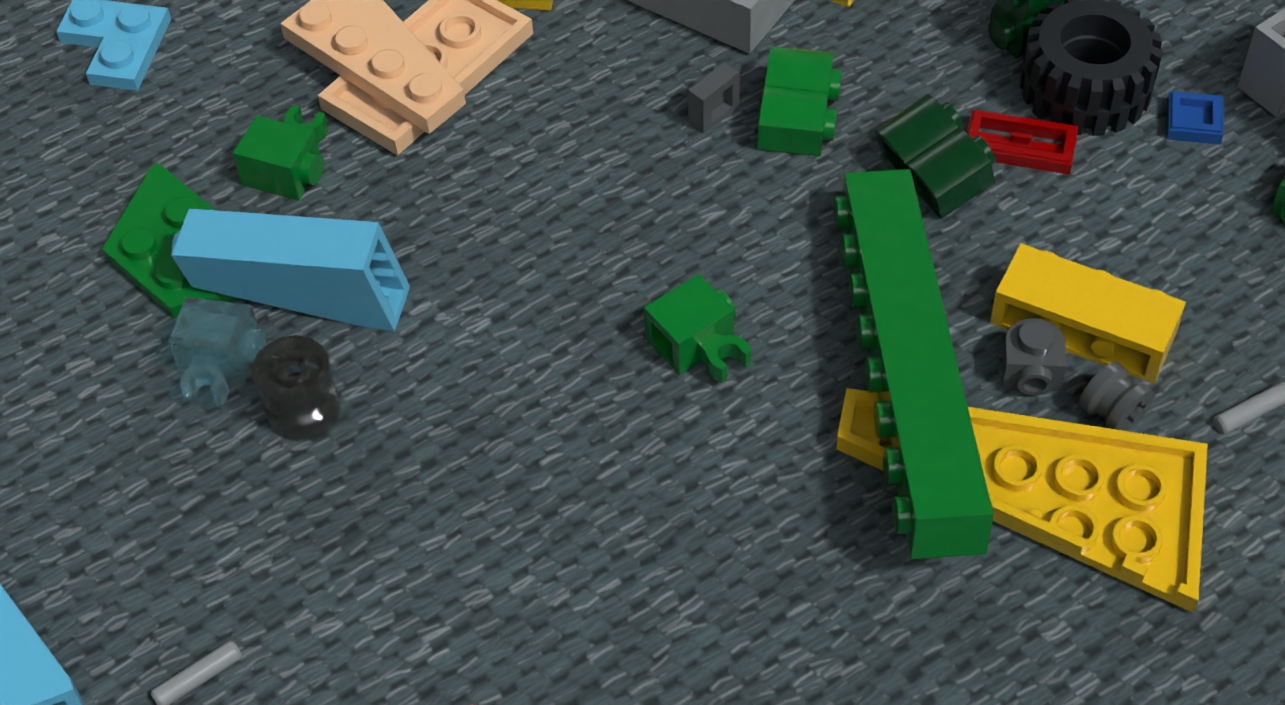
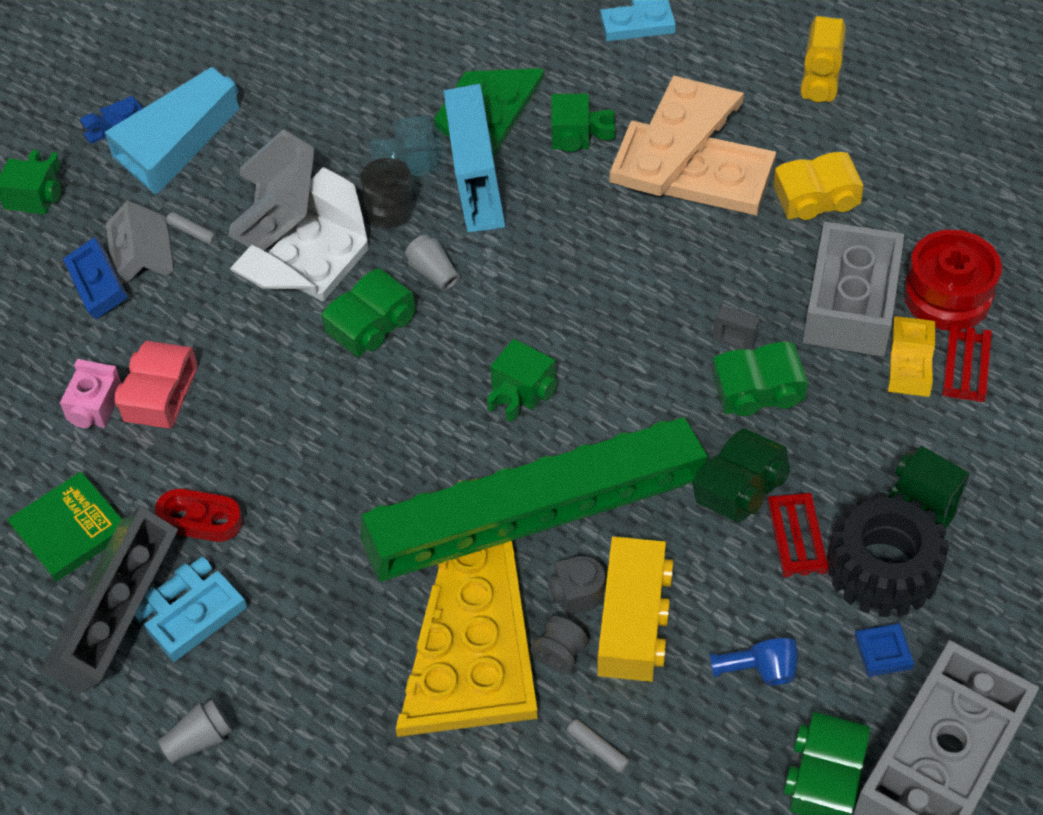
camera: 70 degrees right, 0 degrees up
(223, 520) = (282, 190): none -> light grey panel
(330, 506) = (318, 248): none -> white piece
(442, 376) = (431, 261): none -> light grey cone
(499, 470) = (368, 312): none -> green brick
(1195, 210) = (773, 659): none -> blue bar

